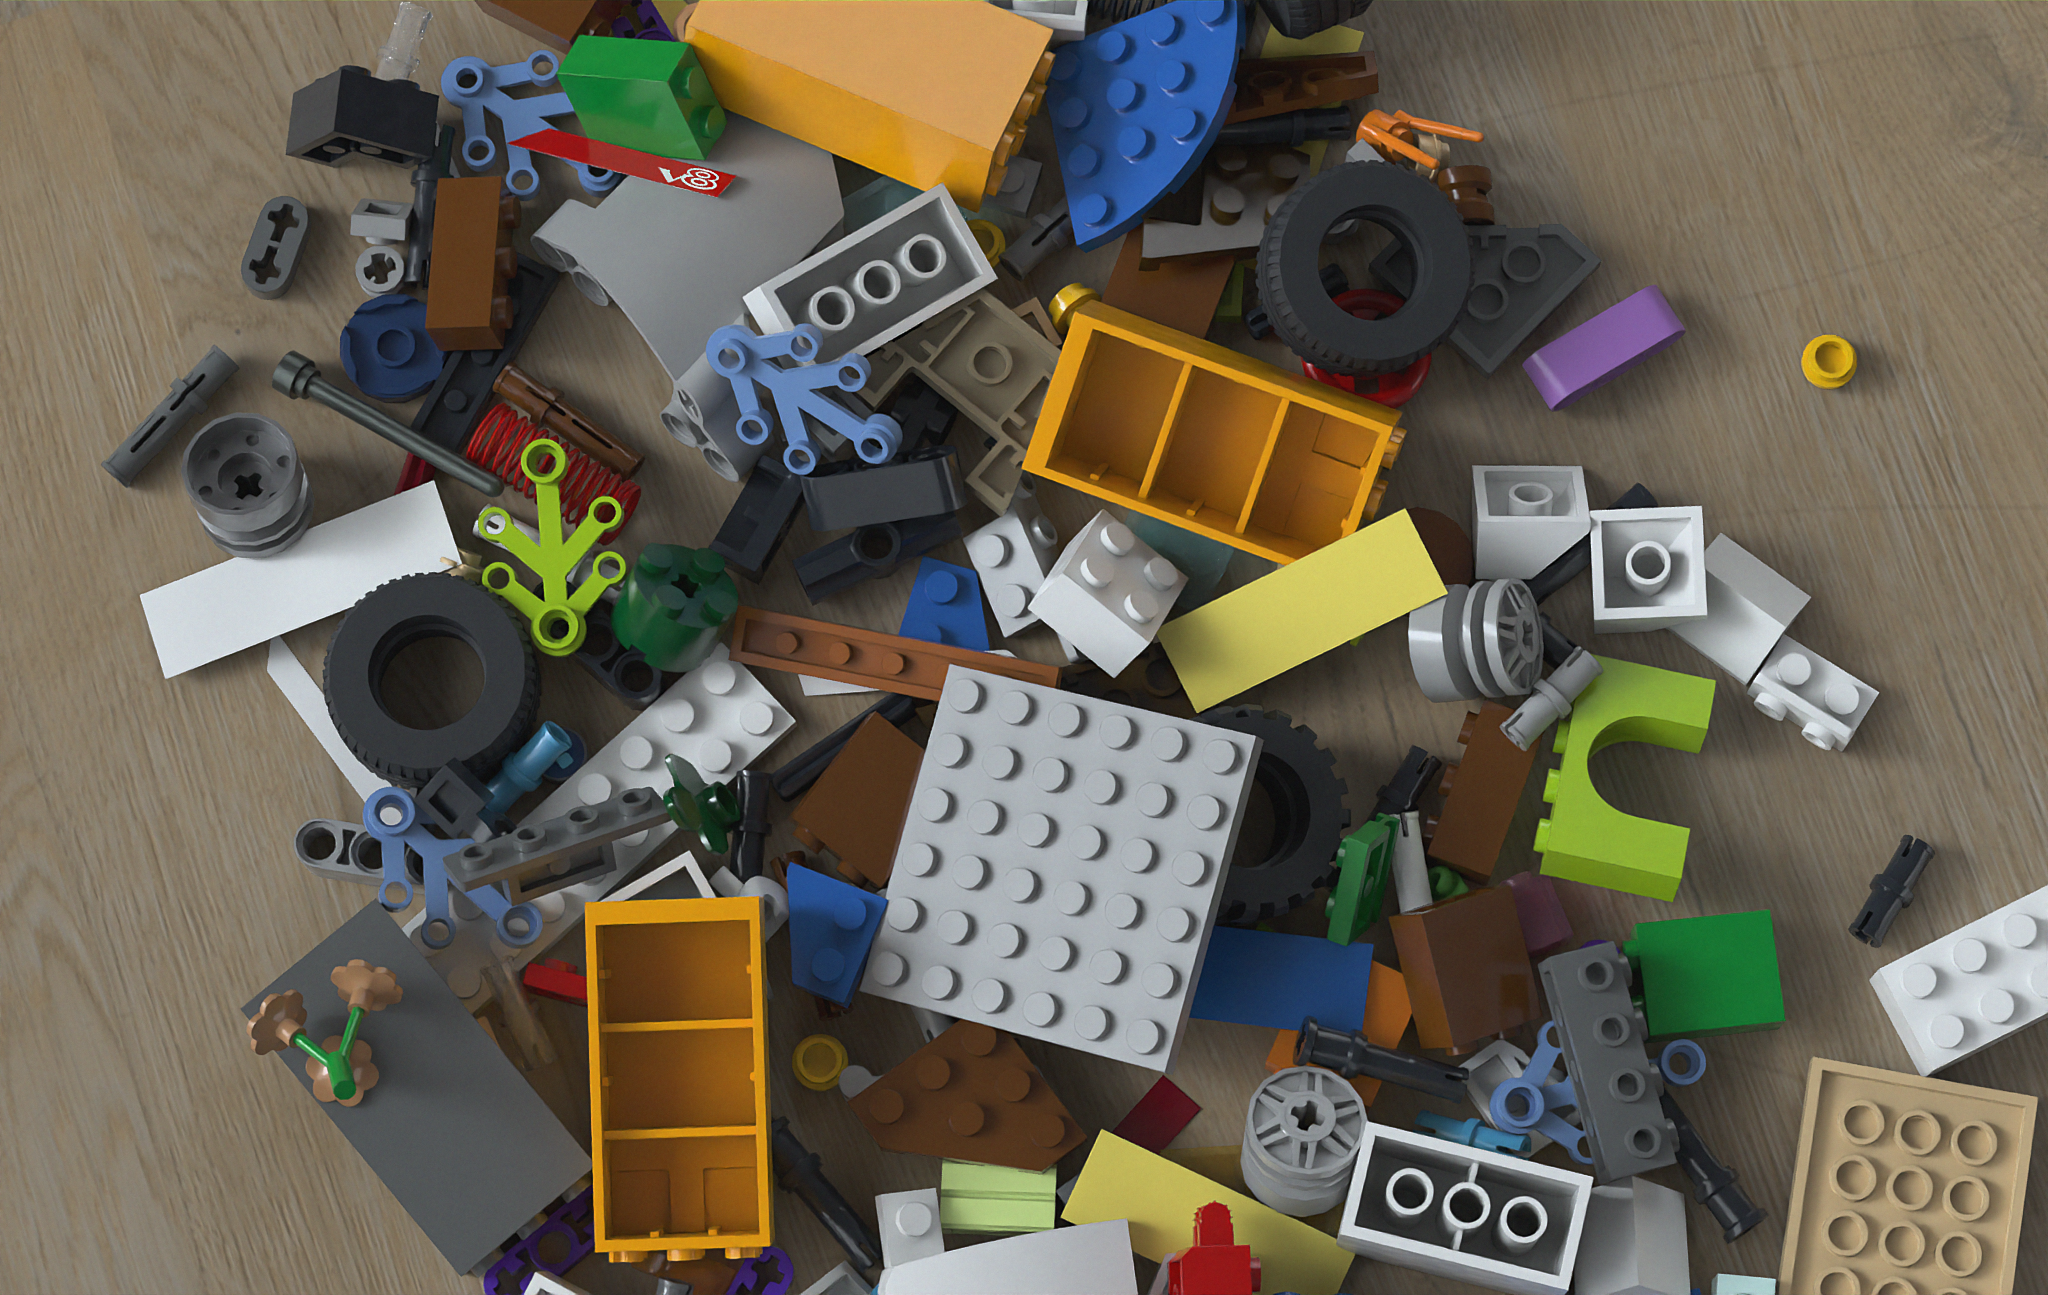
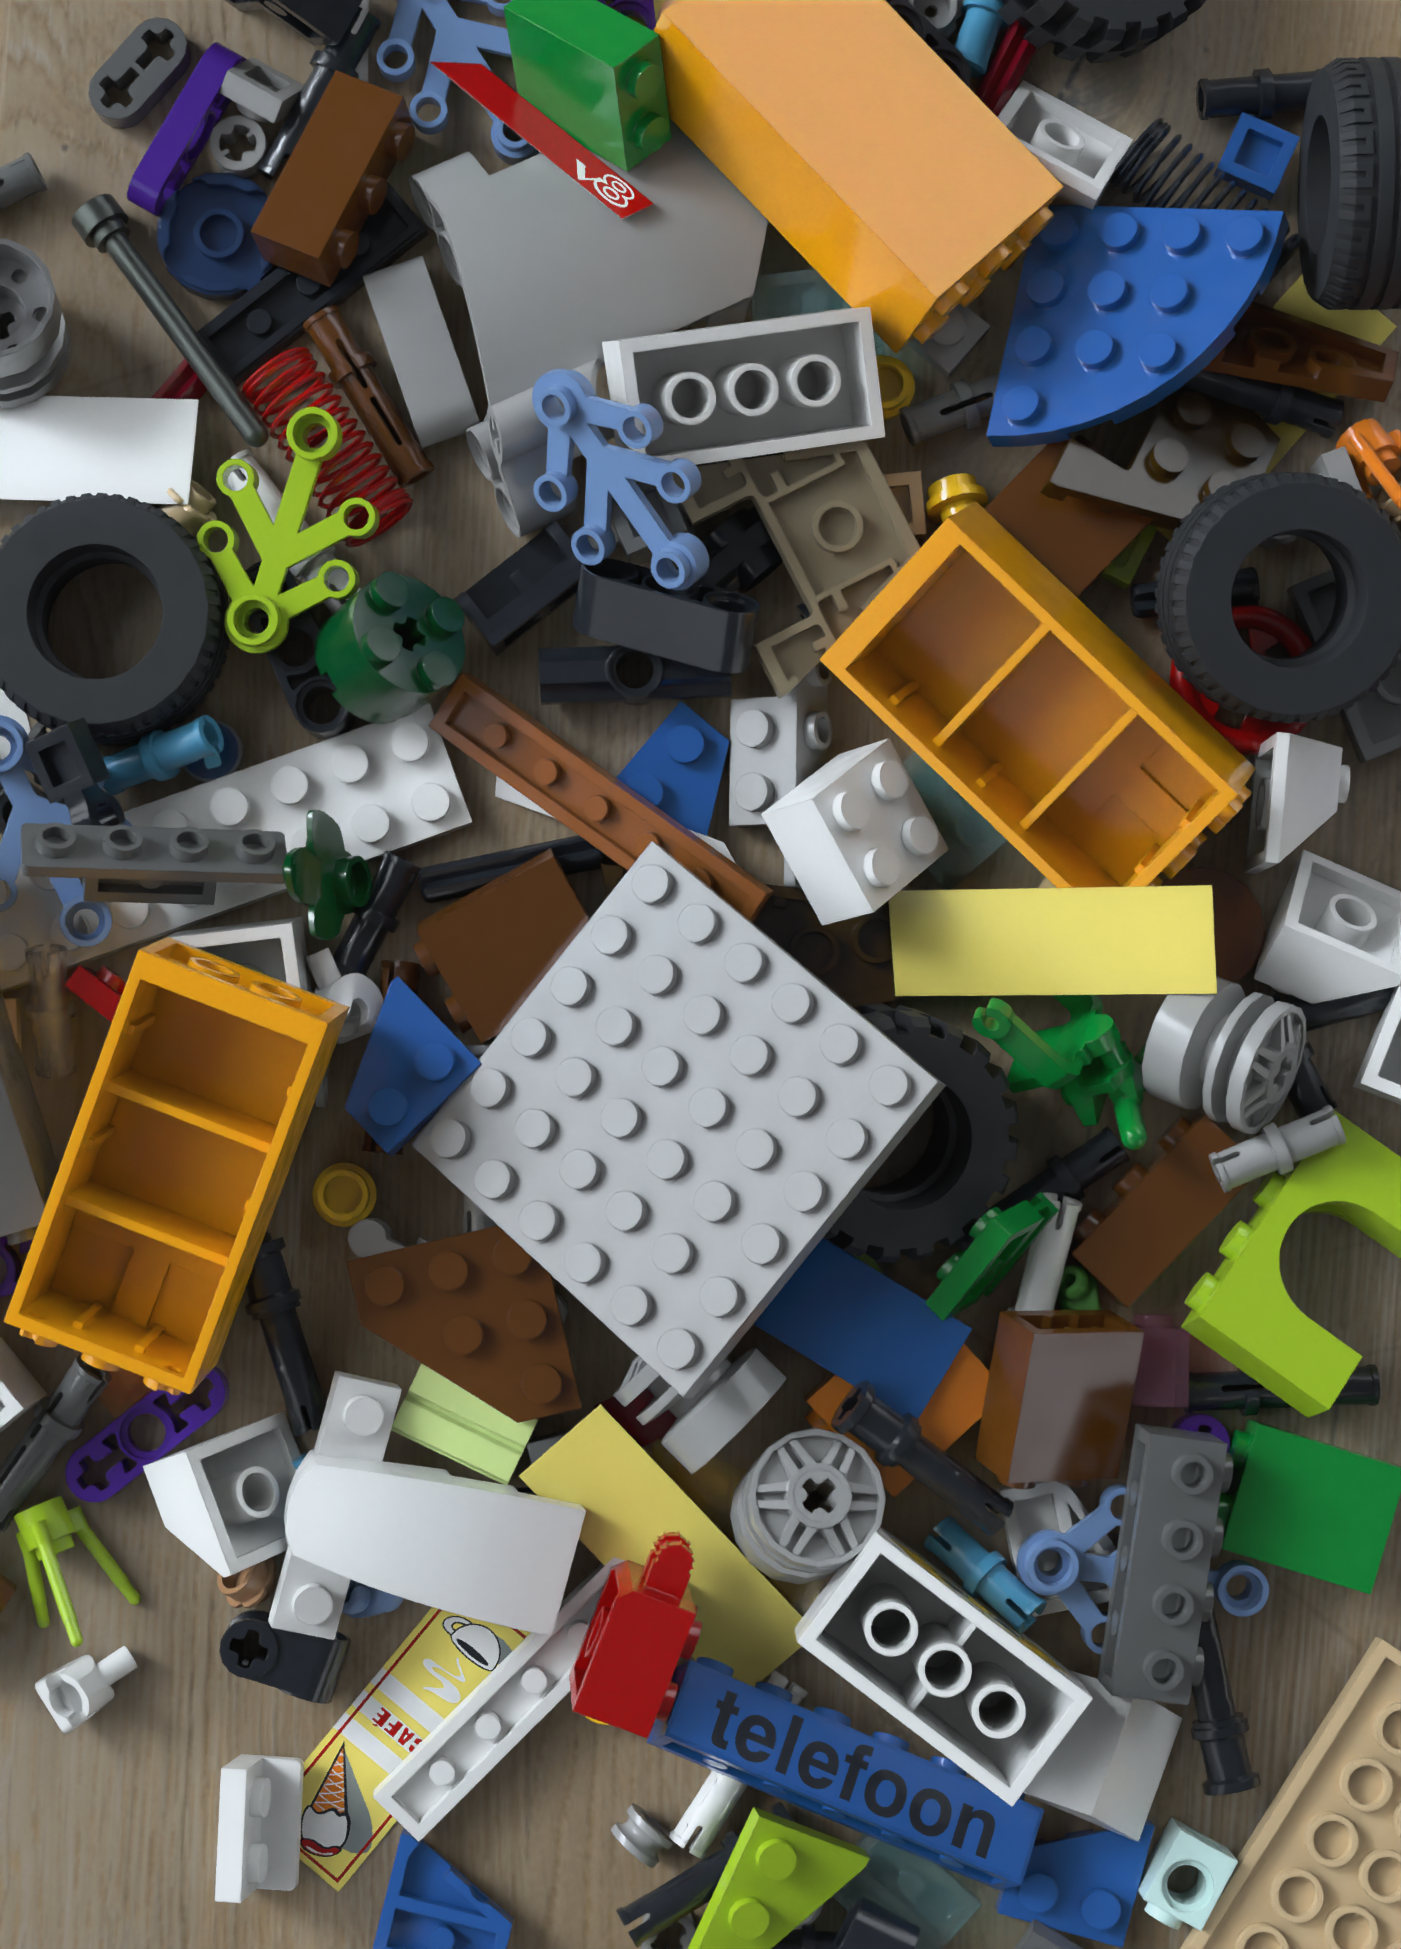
camera: 20 degrees right, 10 degrees up
(333, 277) = (183, 131): none -> dark purple beam
(597, 369) = (421, 351): none -> light grey beam
(1186, 1098) = (714, 1414): none -> light grey wheel
(1367, 697) = (1078, 1057): none -> green piece
(1442, 423) = (1291, 796): none -> white slope
(1621, 907) = (1207, 1392): none -> black pin

